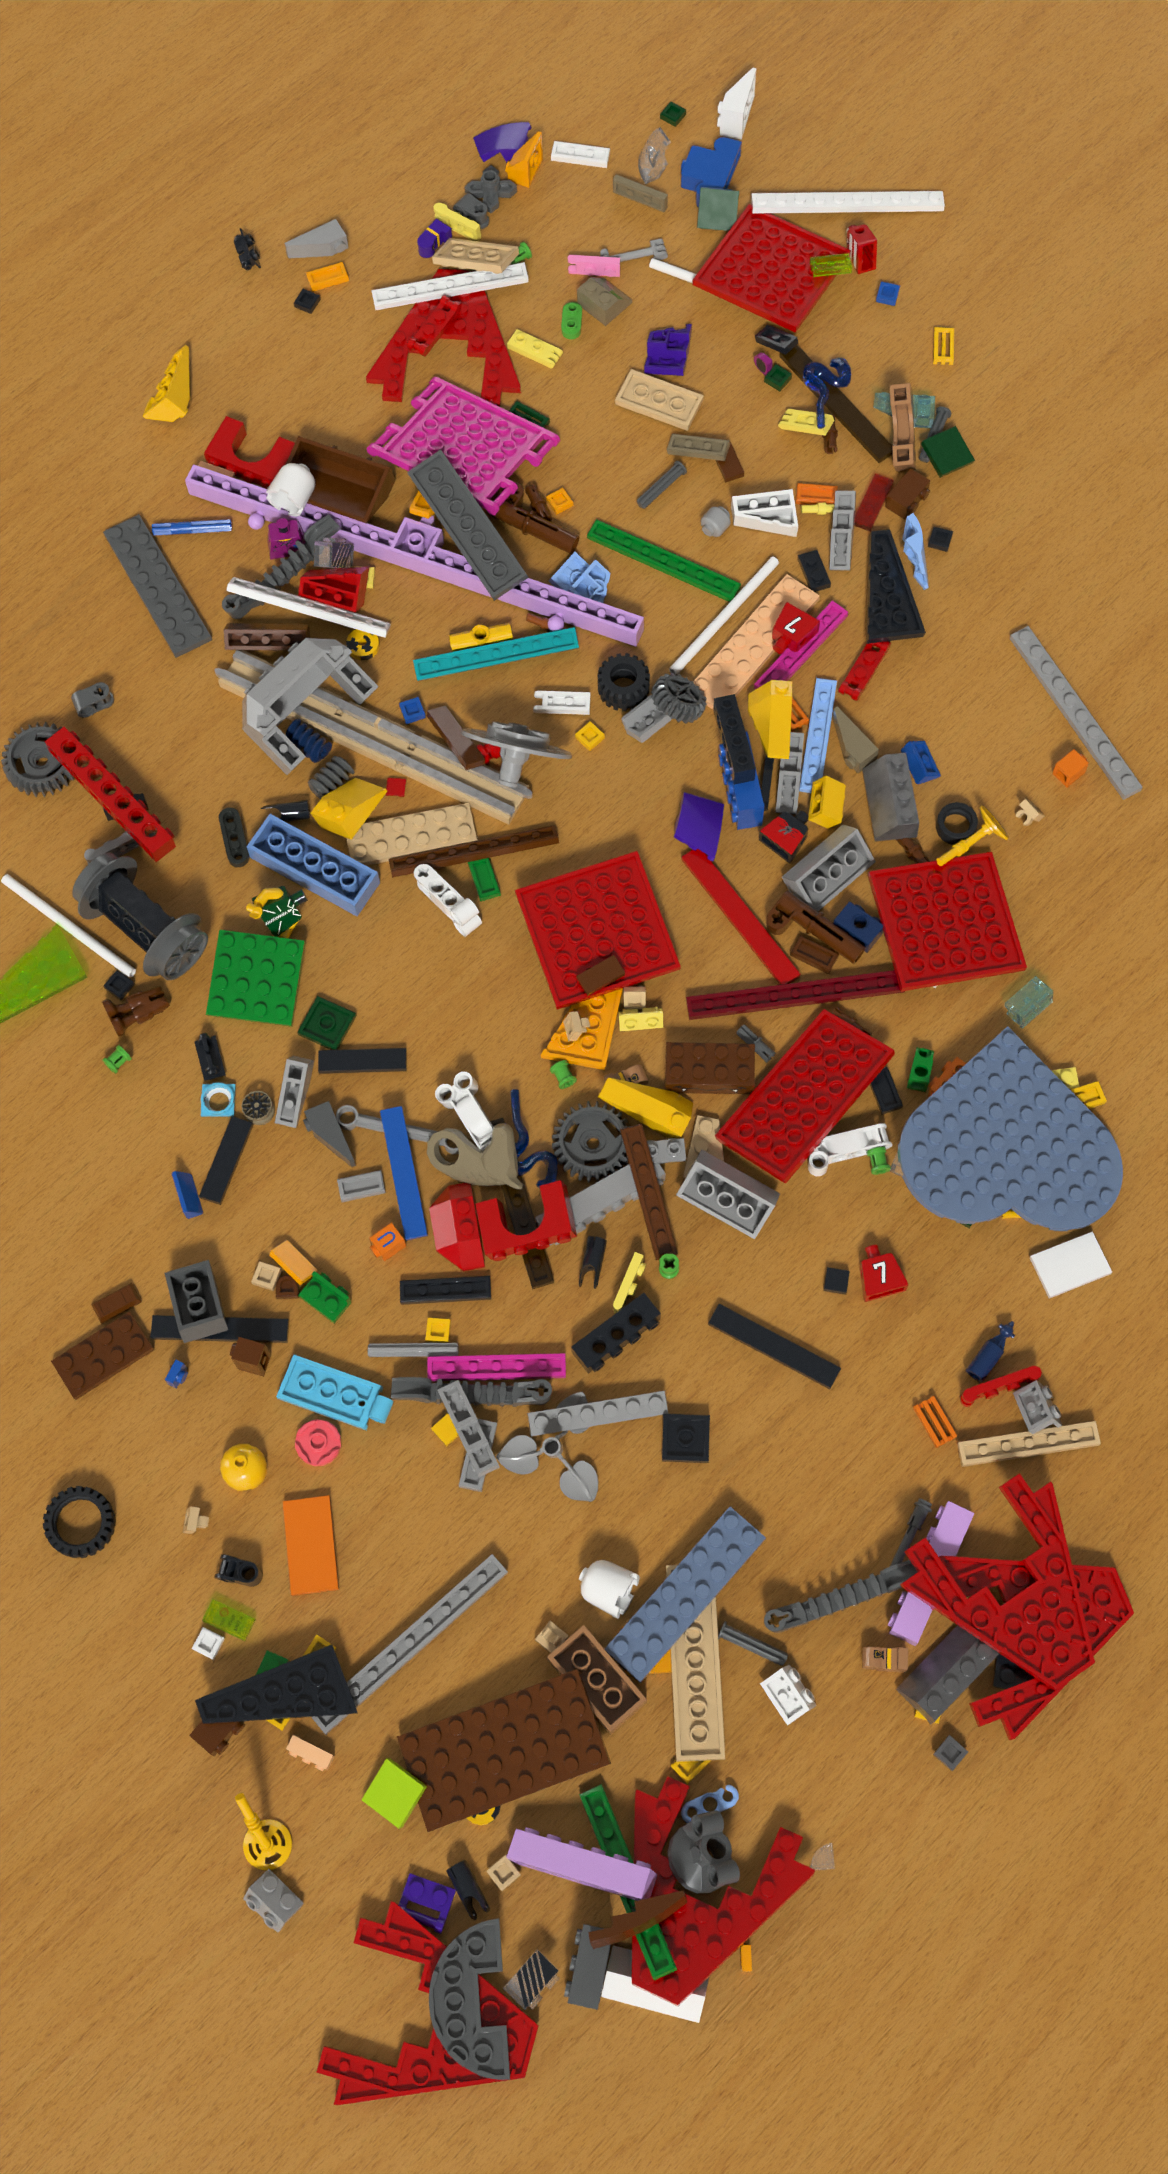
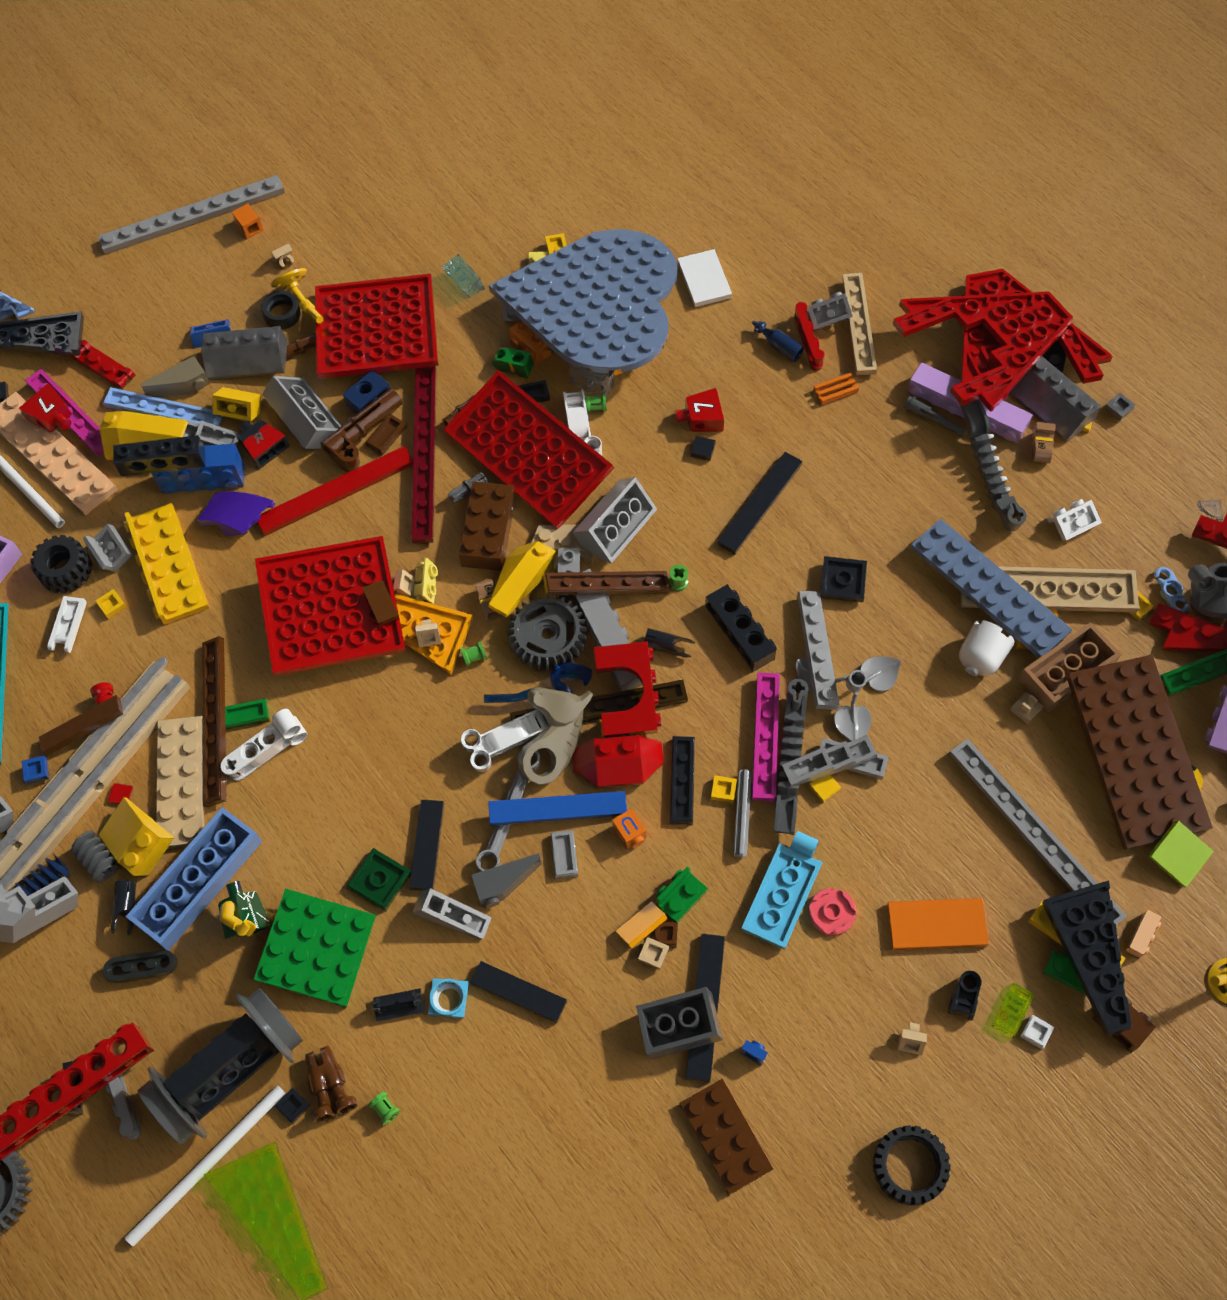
camera: 85 degrees left, 5 degrees down
(116, 1303) = (667, 1120): reddish brown tile -> none
(187, 1194) = (553, 1035): blue slope -> none
(243, 1467) = (855, 987): yellow cylinder -> none
(250, 1356) = (743, 968): reddish brown brick -> none
(258, 1108) = (464, 954): dark tan wheel -> none
(516, 747) = (114, 655): light grey piece -> none
(628, 1285) = (693, 613): light yellow hinge -> none
(638, 774) = (166, 564): none -> yellow bracket
(678, 698) = (94, 514): dark grey gear -> none
(753, 1644) = (1031, 543): dark grey axle -> none

